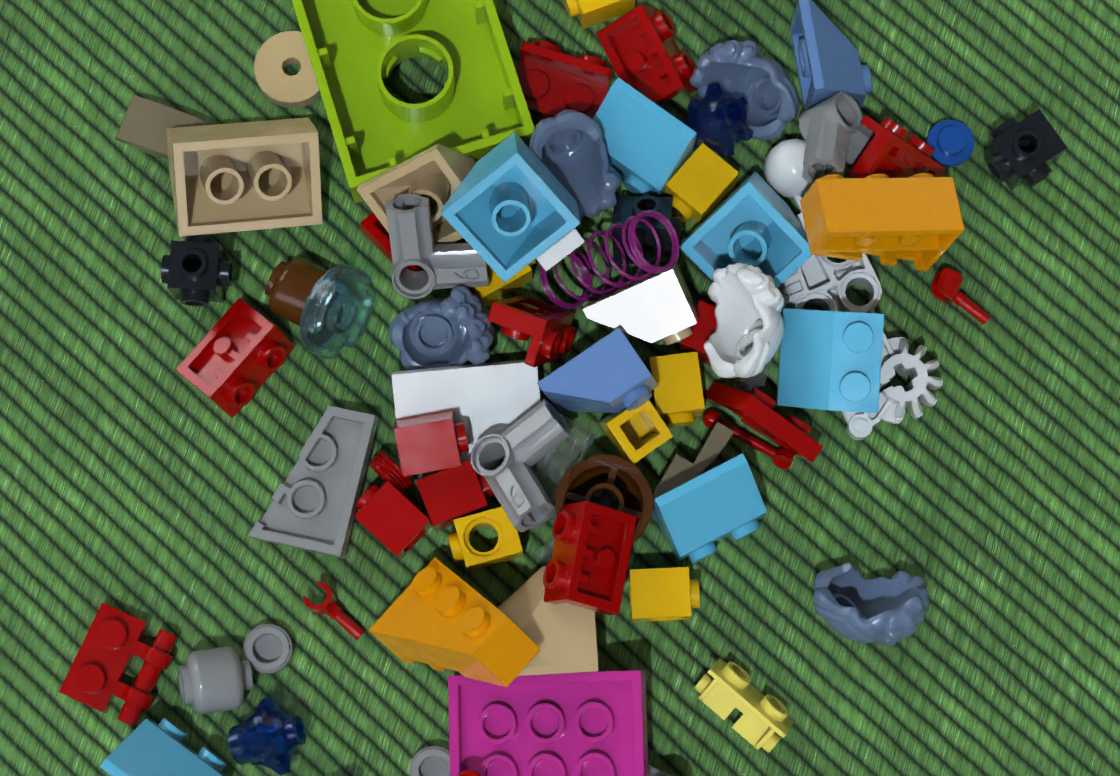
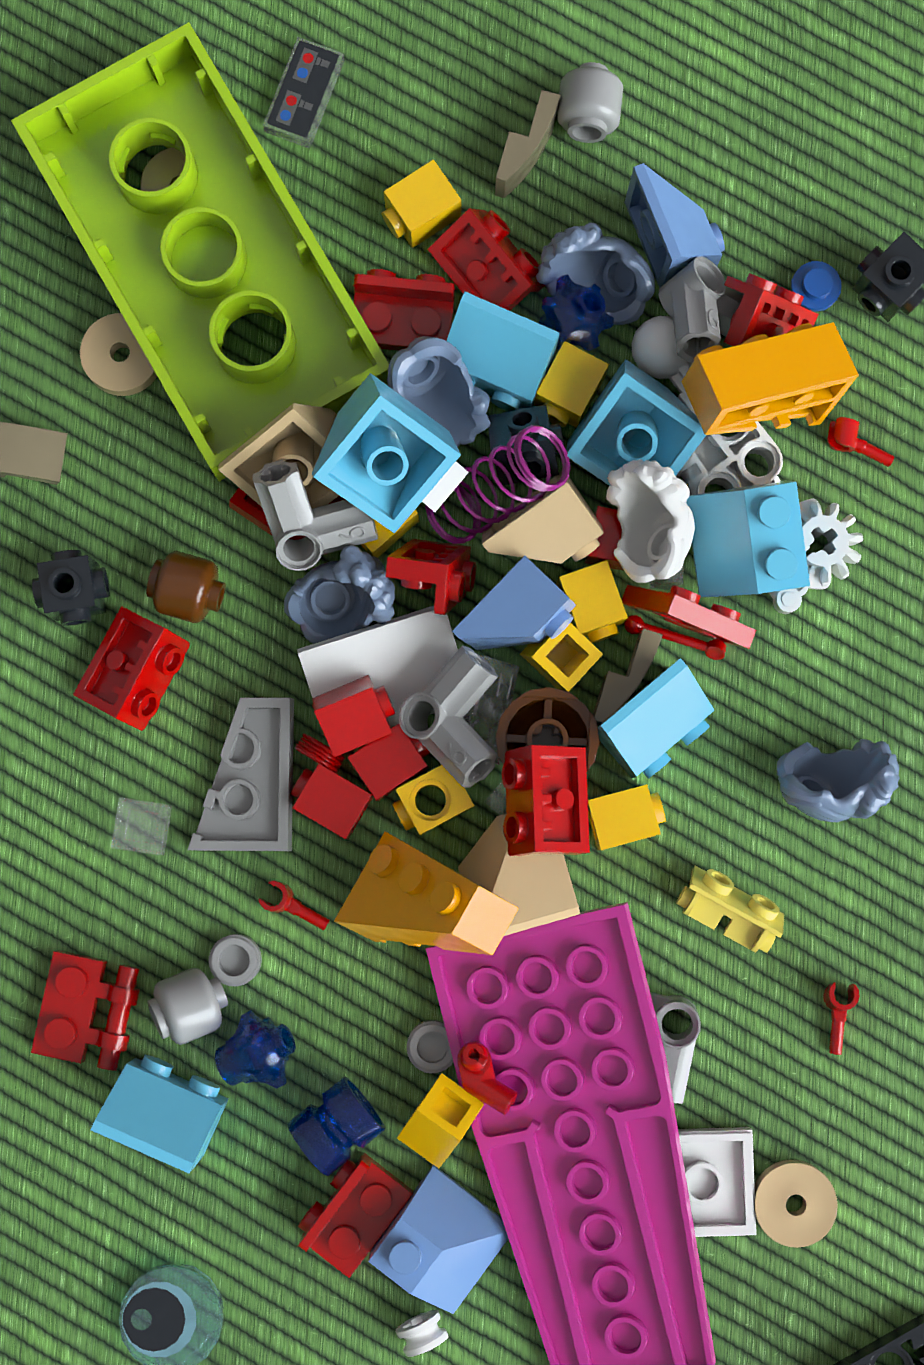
camera: 15 degrees left, 5 degrees up
(210, 505) = (141, 826): none -> clear tile
(245, 176) = (98, 478): tan slope -> none
(336, 311) = (225, 599): clear light blue tile -> none

